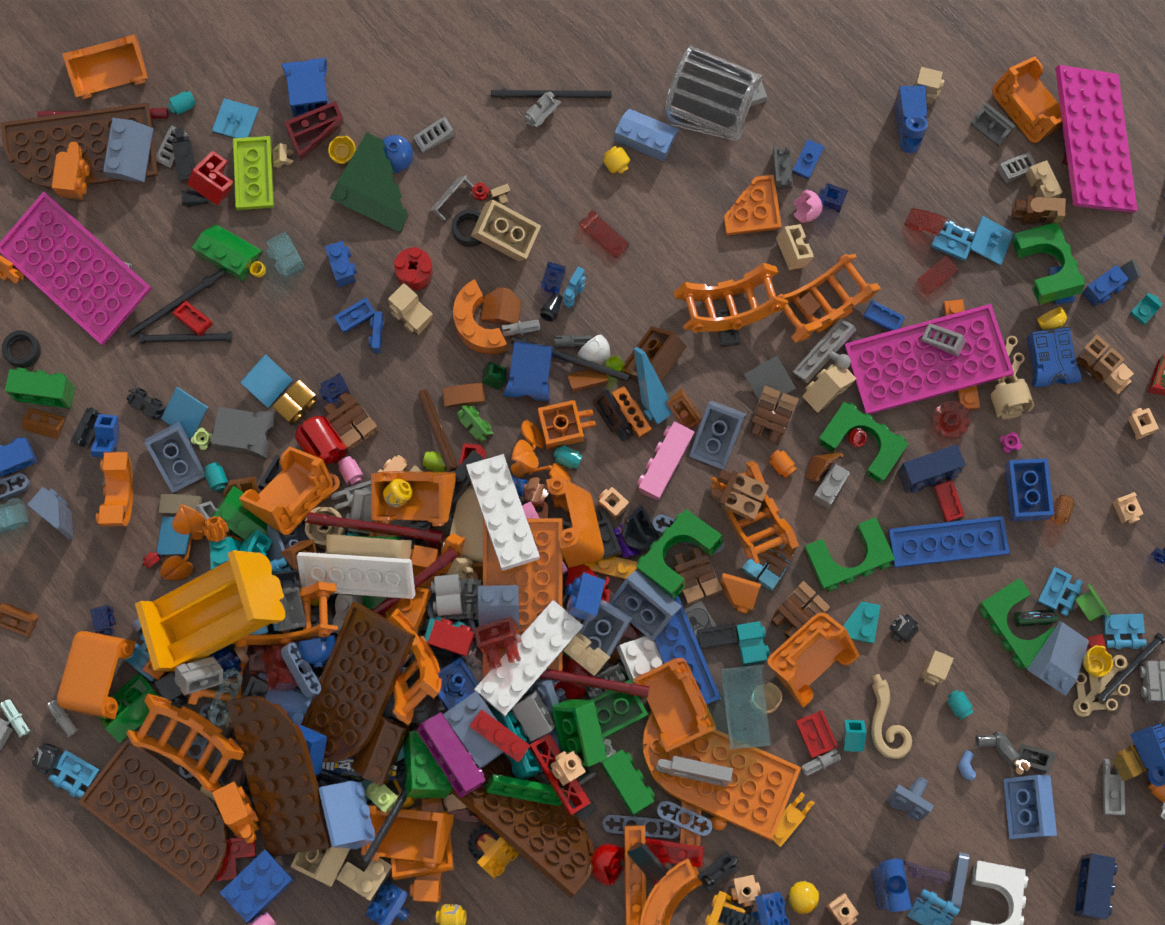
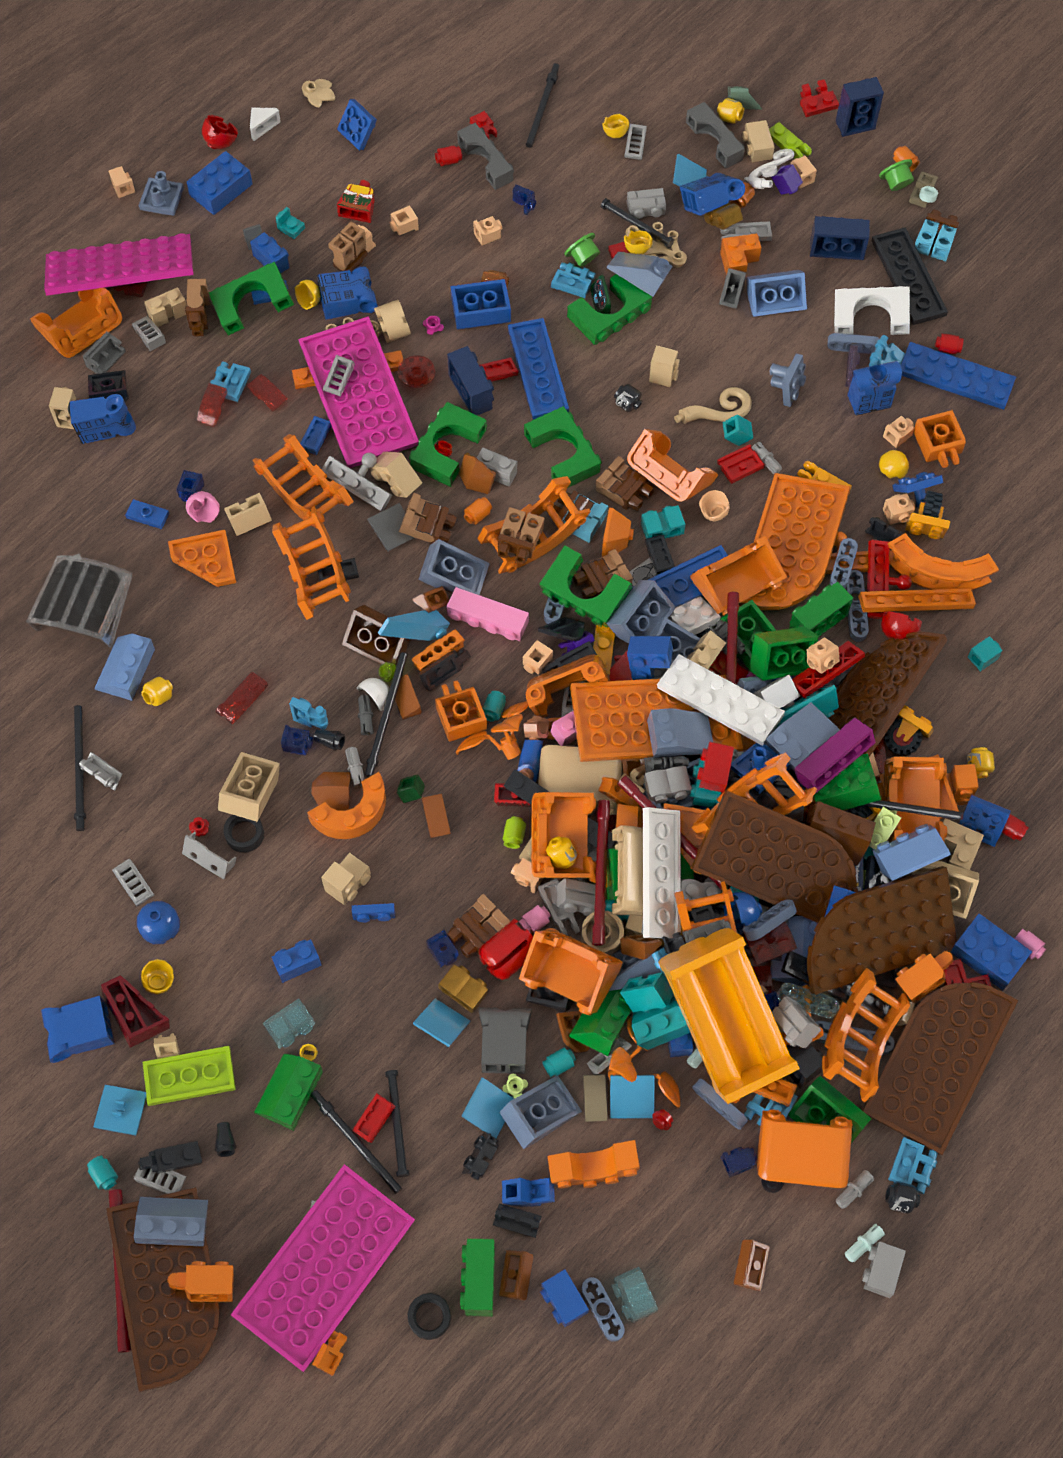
camera: 95 degrees left, 10 degrees down
(53, 510) = (628, 1228): sand blue slope -> none
(105, 66) = (53, 1272): orange windscreen -> none
(209, 180) = (203, 1119): red brick -> none
(215, 529) = (627, 1035): orange gear -> none
(354, 315) = (355, 939): blue plate -> none
(370, 187) = (200, 939): dark green slope -> none
(409, 259) = (291, 891): red brick -> none
(437, 430) = (480, 833): reddish brown axle -> none
(480, 427) = (459, 805): bright green hinge -> none
(497, 636) = (704, 721): clear red brick -> none
(499, 735) = (807, 711): red plate -> none
(500, 193) = (200, 803): tan tile -> none
(502, 512) = (572, 739): white plate -> none
(523, 789) = (847, 697): green plate -> none
(530, 371) = (405, 748): blue piece -> none
(647, 861) = (894, 585): black slope -> none
(696, 770) = (799, 551): light grey hinge -> none
(746, 706) = (727, 514): clear light blue hinge -> none
(782, 167) = (157, 537): dark grey hinge -> none
(809, 303) = (309, 494): dark orange slope -> none
(863, 622) = (624, 433): teal wing -> none
(951, 126) = (107, 384): none -> black slope
(959, 704) = (692, 350): teal brick -> none
(965, 767) = (747, 345): medium blue arm -> none
(991, 240) = (228, 349): dark azure piece -> none
(1004, 749) = (728, 313): dark grey arm -> none
(1085, 771) = (739, 251): none -> orange brick
(1124, 625) = (596, 225): dark azure plate -> none

